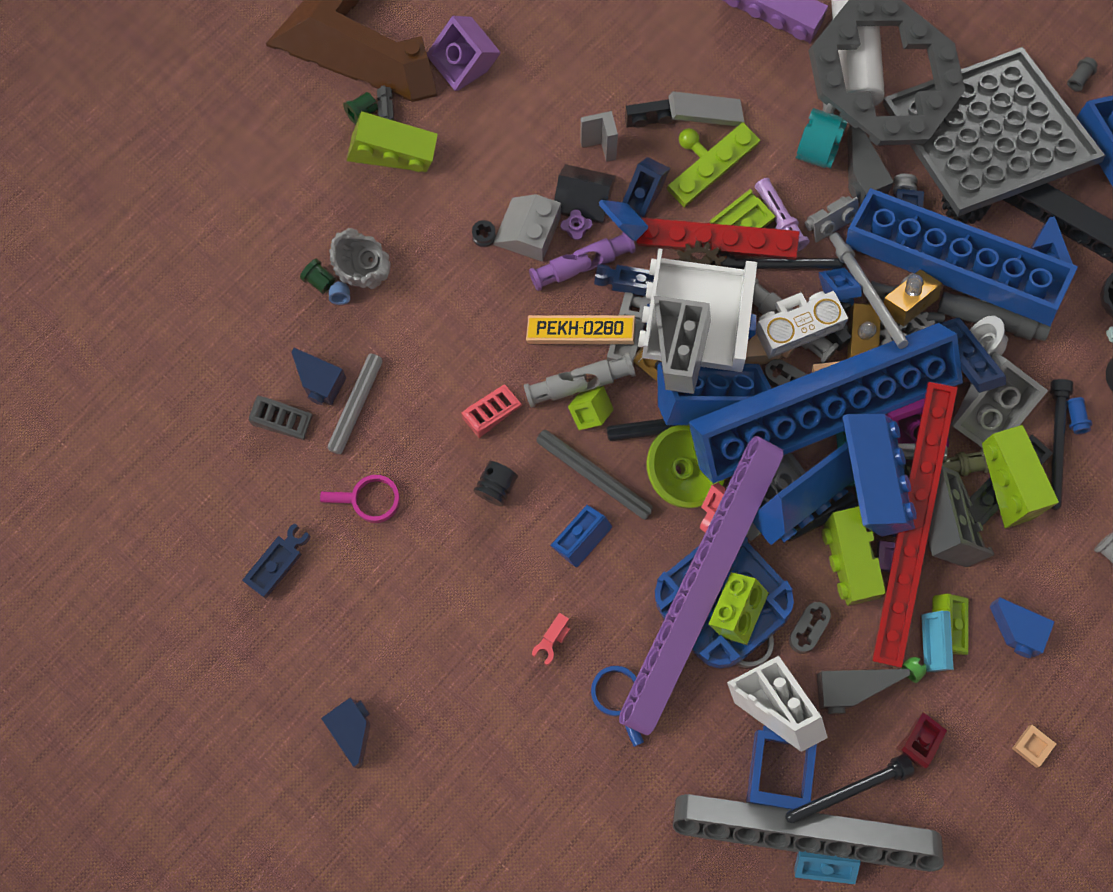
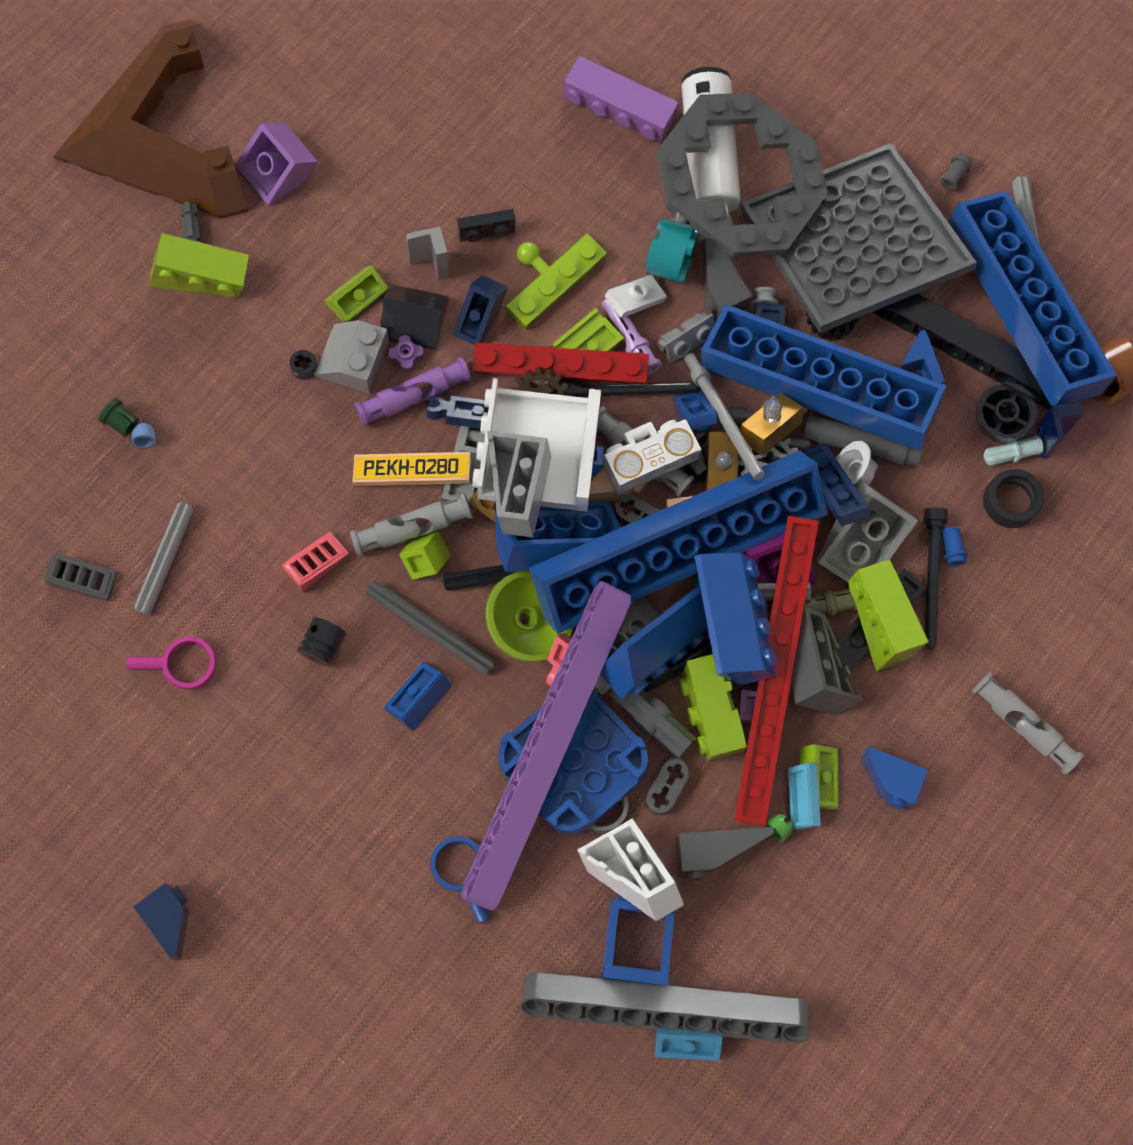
camera: 10 degrees left, 0 degrees up
(275, 562) = (79, 737): dark blue plate -> none
(319, 378) = (122, 531): dark blue slope -> none
(352, 258) = (156, 398): light grey hair -> none
(362, 103) = (163, 223): dark green bush -> none
(533, 171) = (356, 294): none -> lime slope
(557, 632) = (391, 803): coral plate -> none
(624, 218) = (457, 344): blue slope -> none
(706, 109) = (546, 220): light grey tile -> none
(738, 608) = (587, 768): lime brick -> none
(786, 179) = (635, 296): none -> white plate
(800, 567) = (656, 721): none -> dark grey piece
(898, 768) = (765, 935): black piece -> none
(922, 741) = (789, 903): dark red slope -> none
(1034, 746) = (908, 904): light nougat plate -> none

